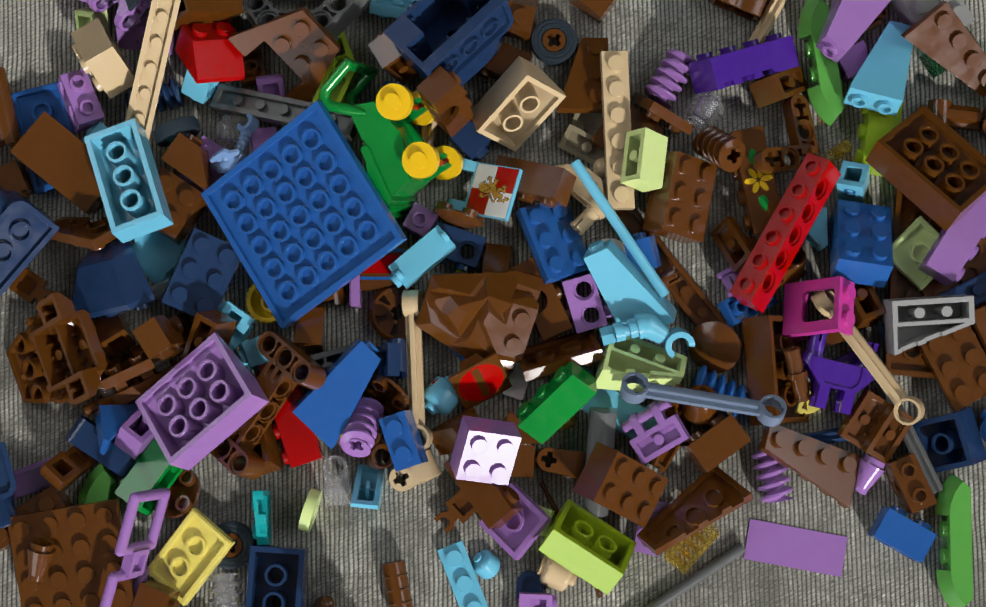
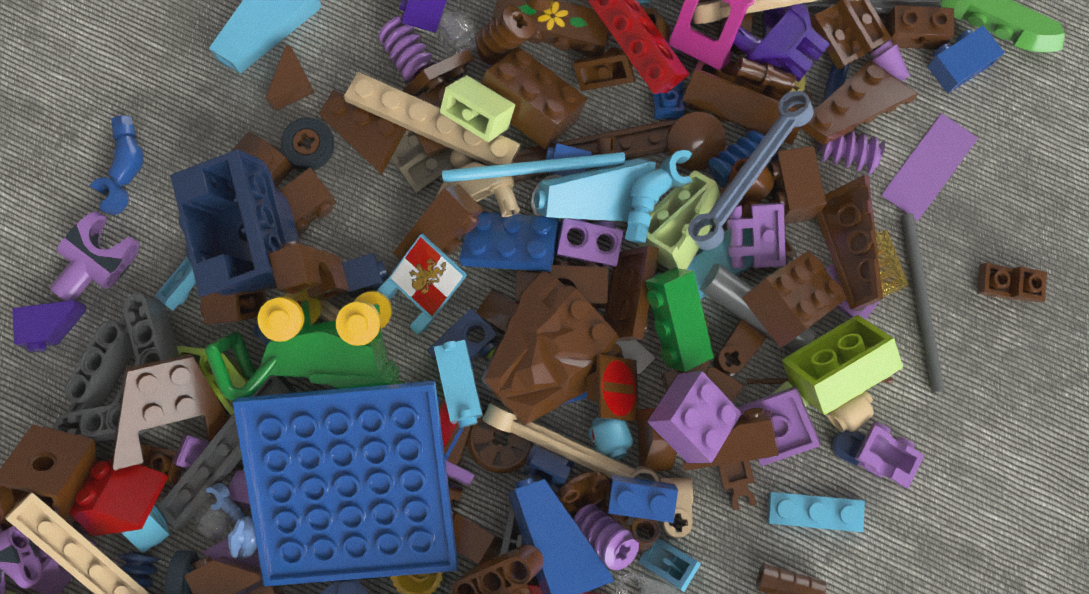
camera: 60 degrees left, 5 degrees down
(420, 221) = (418, 365): medium lavender brick -> none
(465, 219) = (441, 318): reddish brown dish -> none
(486, 564) = (806, 479): medium azure piece -> none
(516, 104) = (351, 207): tan slope -> none
(724, 276) = (638, 94): medium lavender bush -> none

